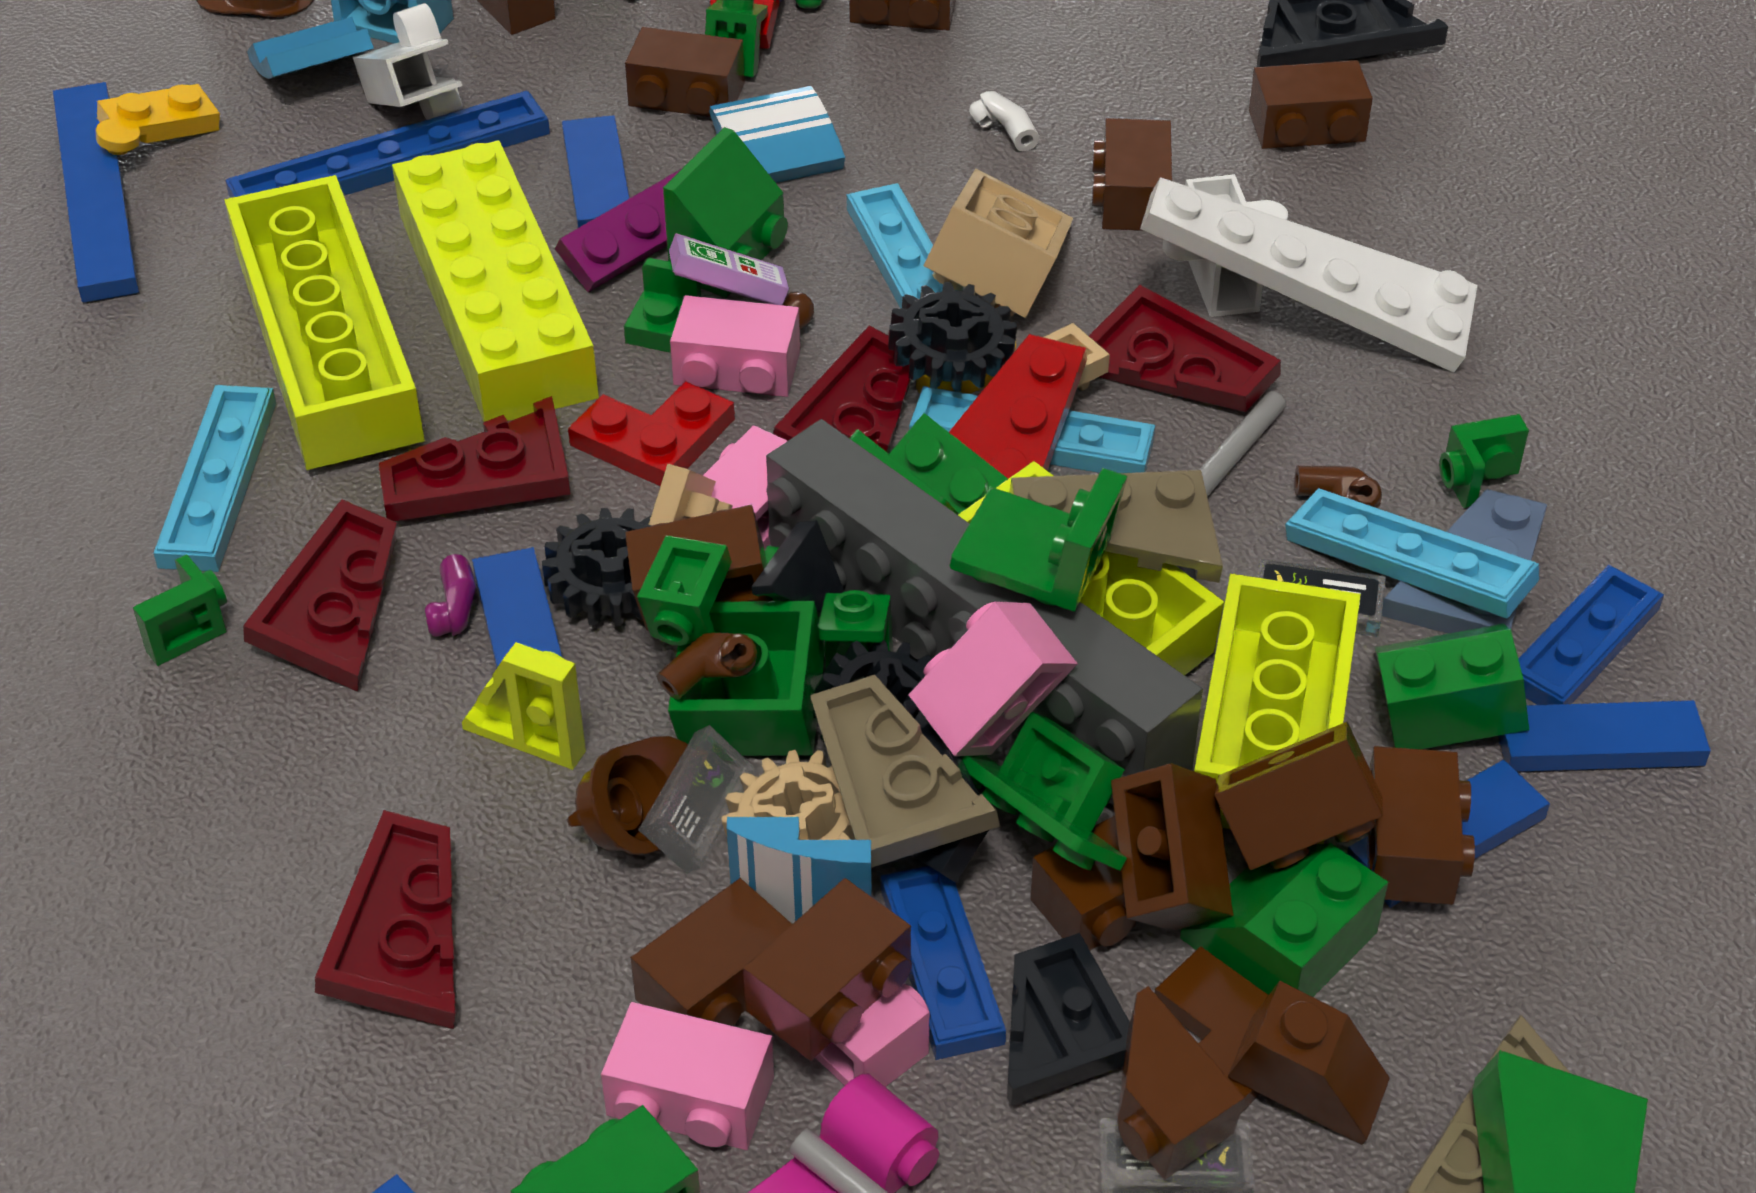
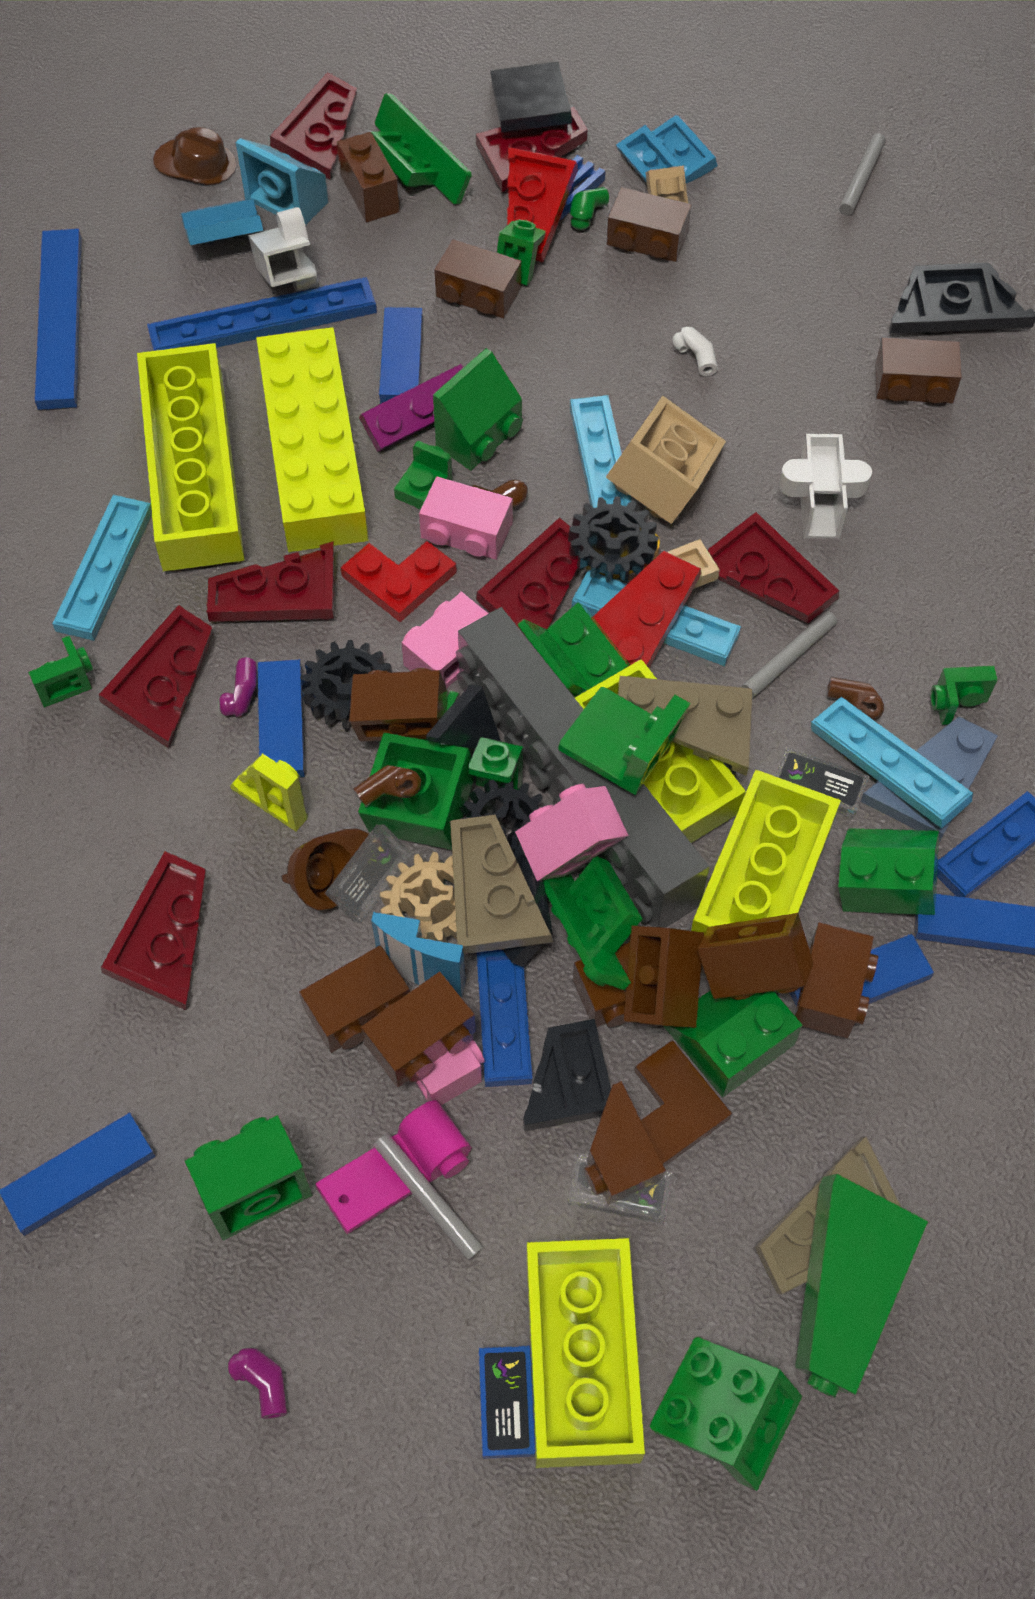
camera: 10 degrees right, 15 degrees up
(154, 117) = (106, 265): yellow hinge -> none
(683, 589) = (380, 730): green bracket -> none
(684, 496) = (401, 652): tan tile -> none
(689, 1075) = (321, 1078): bright pink brick -> none
(728, 270) = (470, 460): lavender tile -> none
(784, 132) = (533, 341): dark azure slope -> none
(1128, 169) = (776, 413): reddish brown brick -> none
(1312, 1062) = (721, 1144): reddish brown slope -> none
(1358, 285) = (902, 534): white wing -> none

